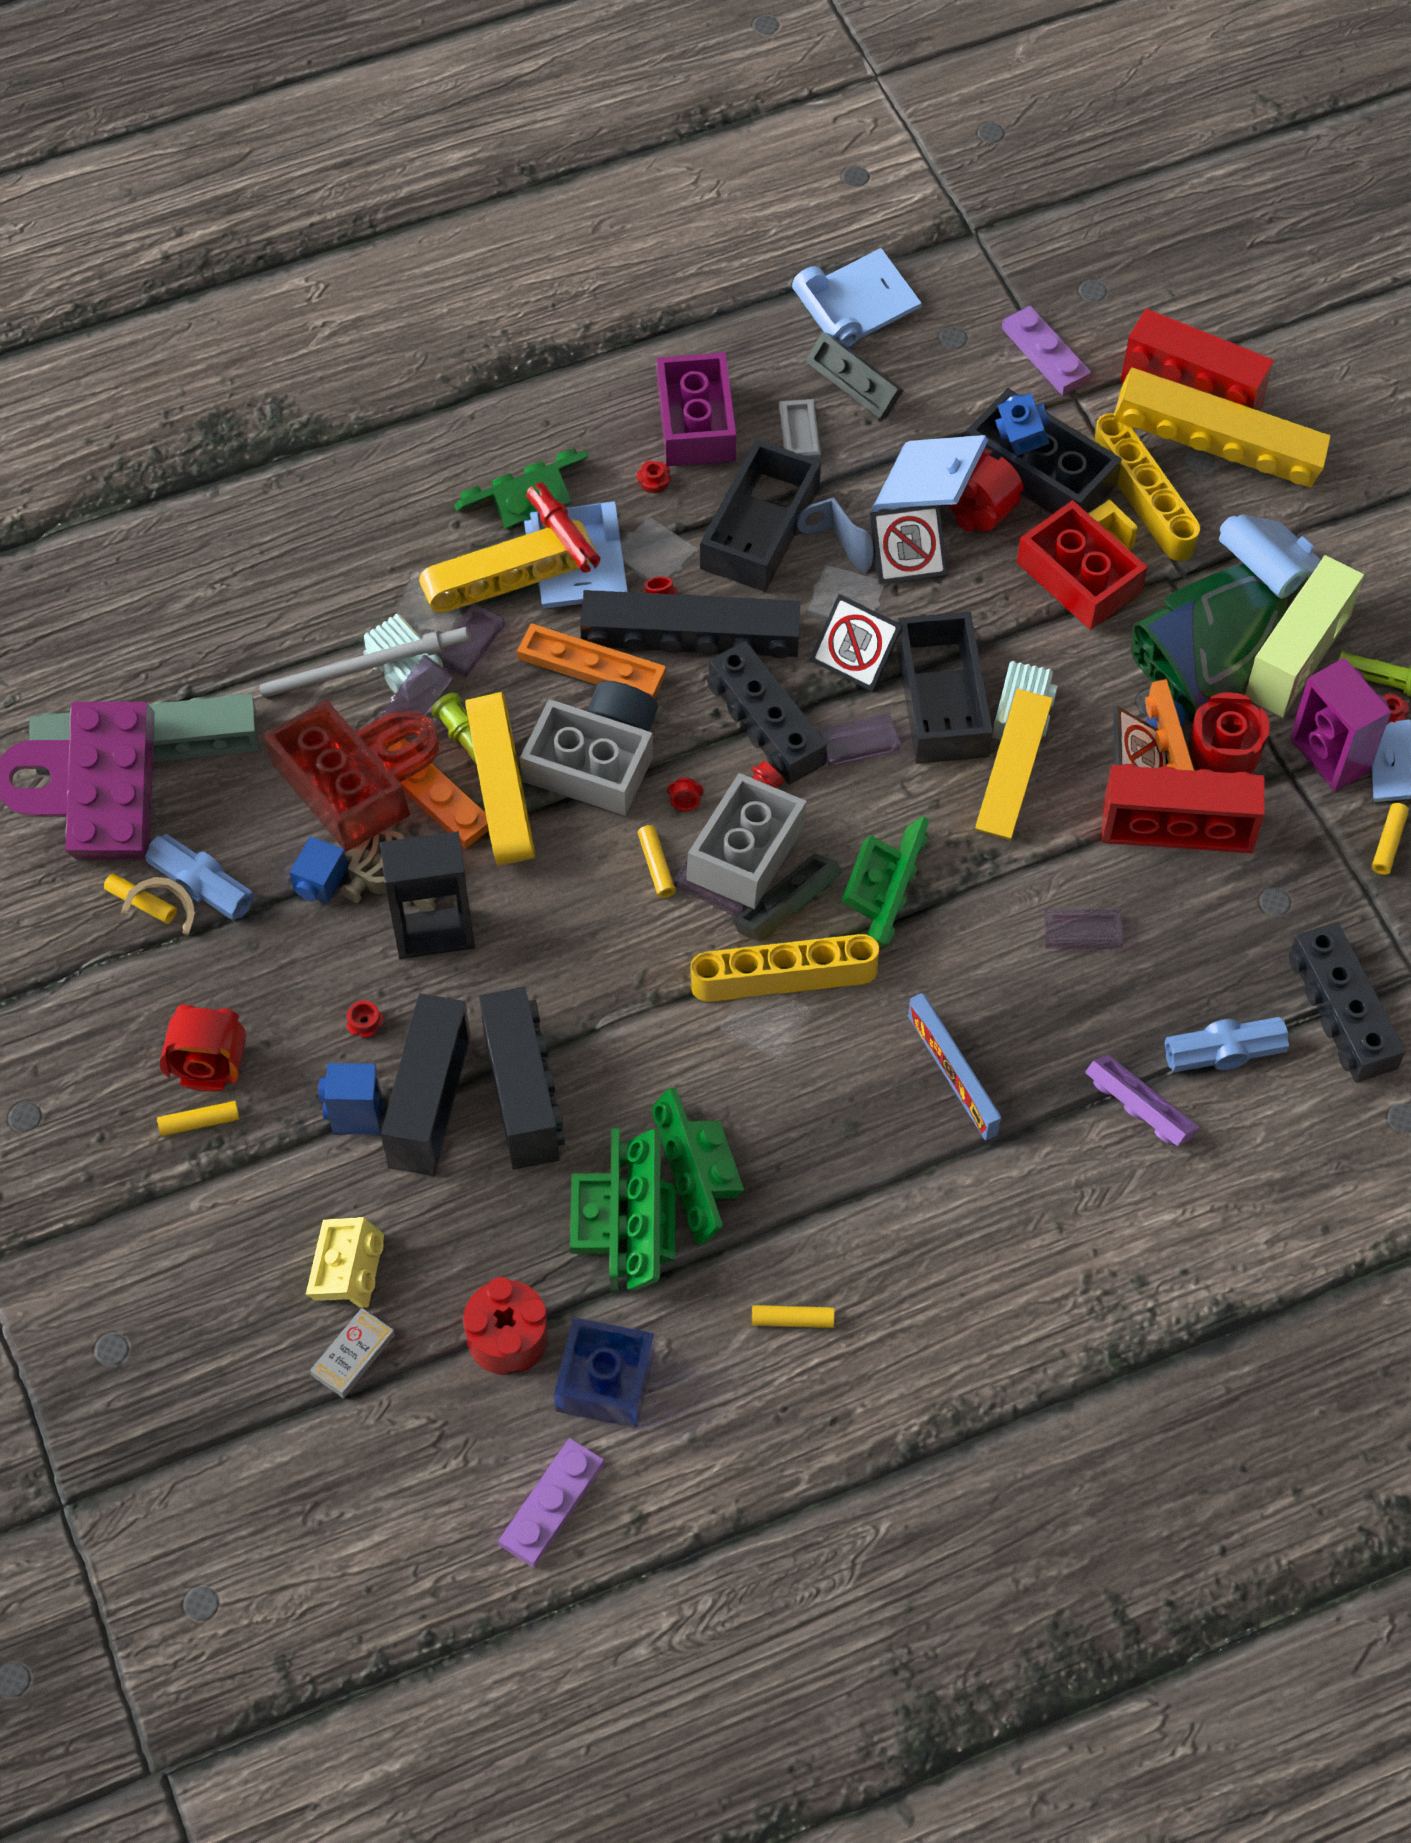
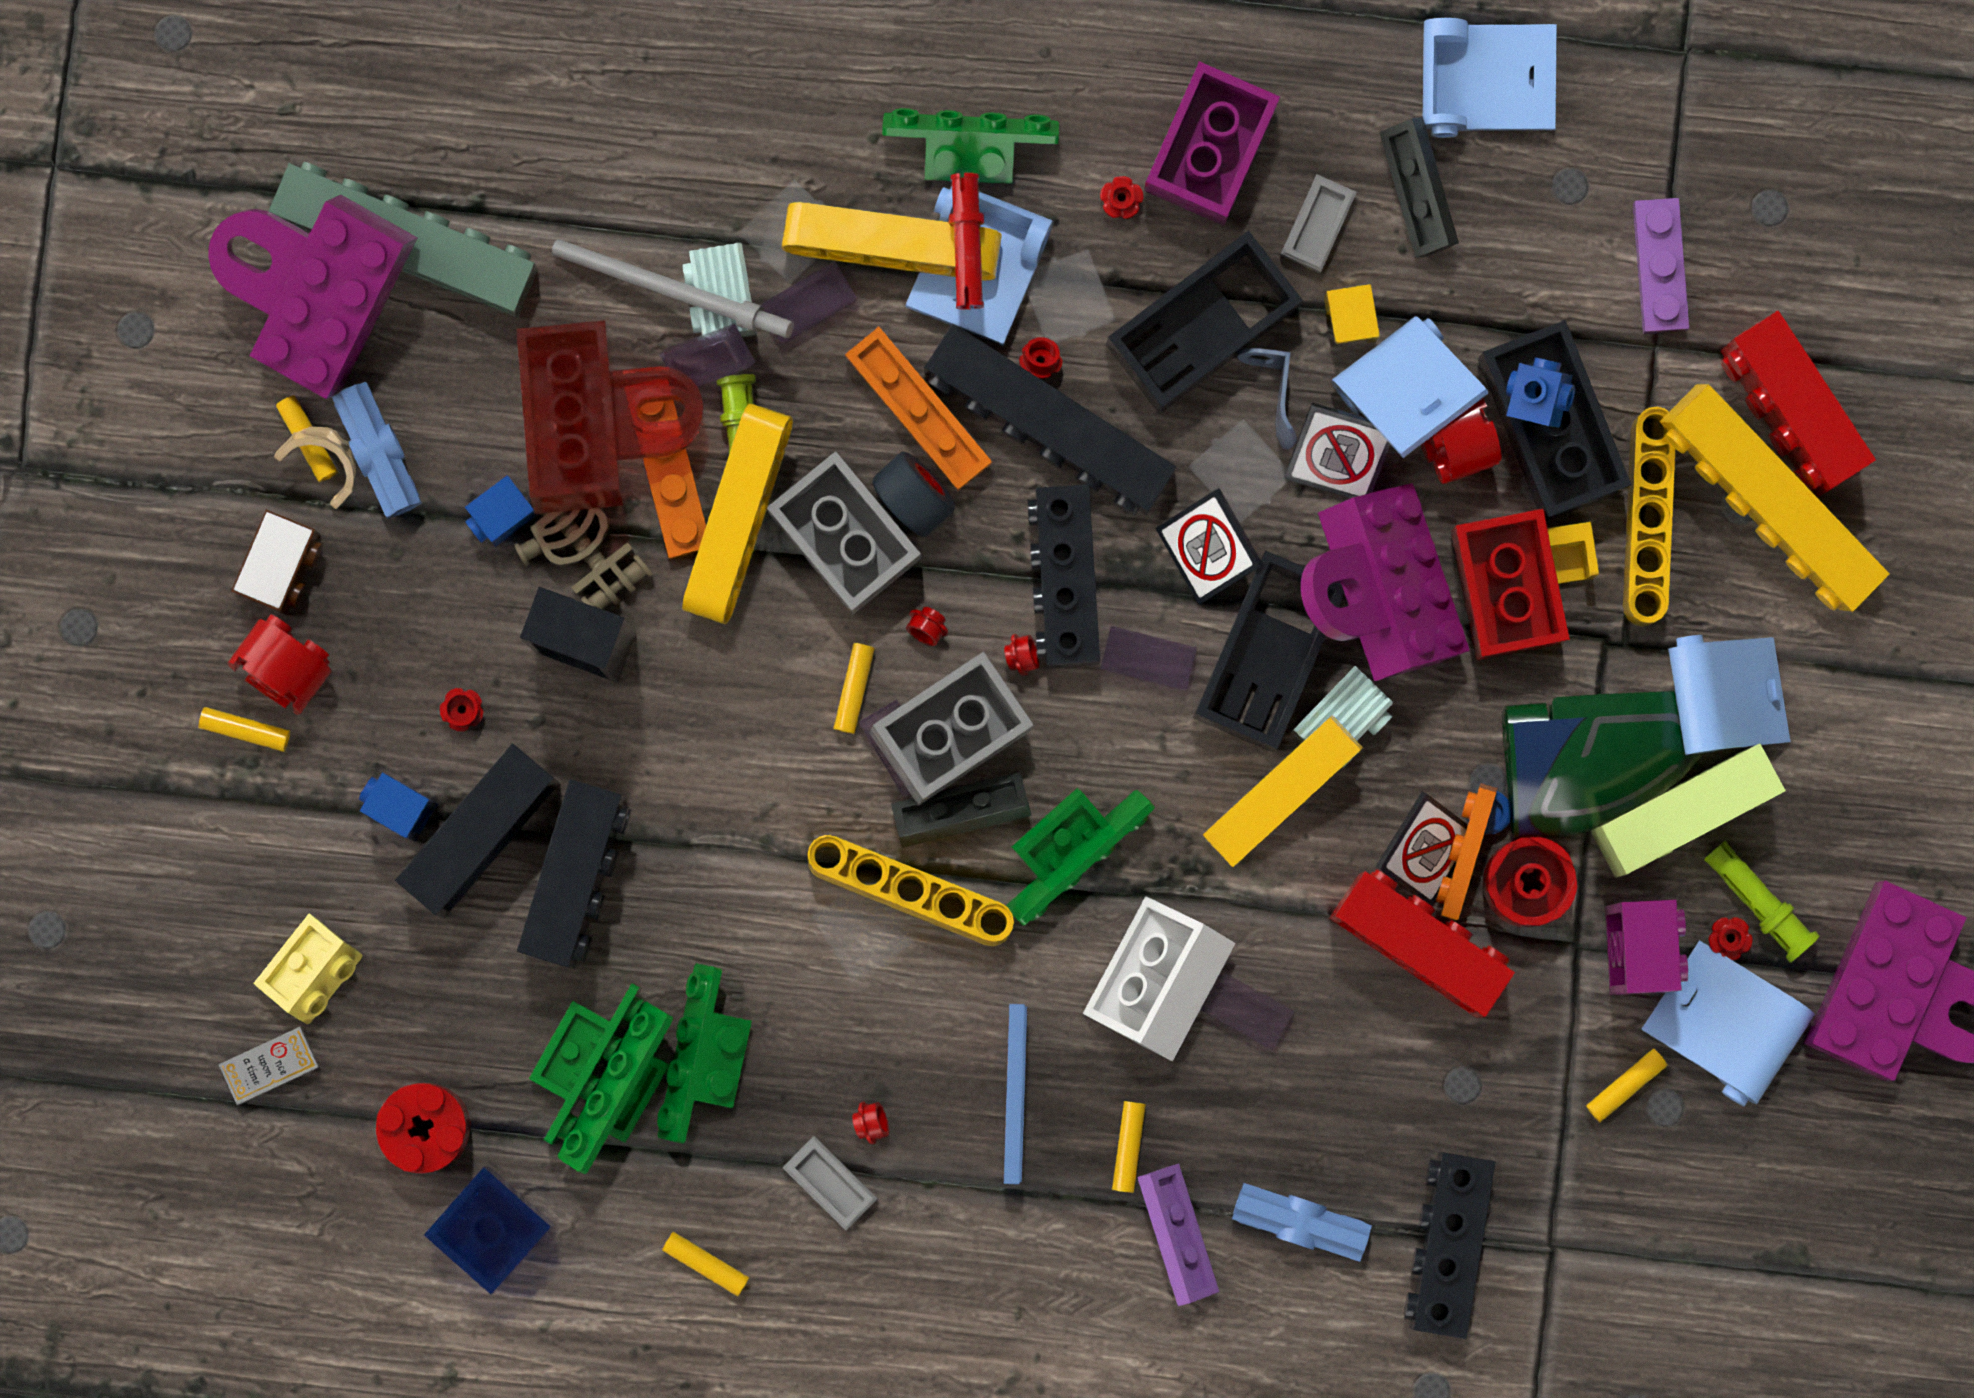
camera: 25 degrees right, 25 degrees up
(160, 984) = (277, 563): none -> white brick
(551, 1502) = (377, 1320): medium lavender plate -> none
(853, 1207) = (830, 1183): none -> light grey tile
(857, 1144) = (870, 1122): none -> red plate
(860, 460) = (1352, 314): none -> yellow panel
(1001, 595) = (1390, 583): none -> magenta brick
(1008, 934) = (1159, 978): none -> white slope
(1063, 1063) = (1128, 1147): none -> yellow piece

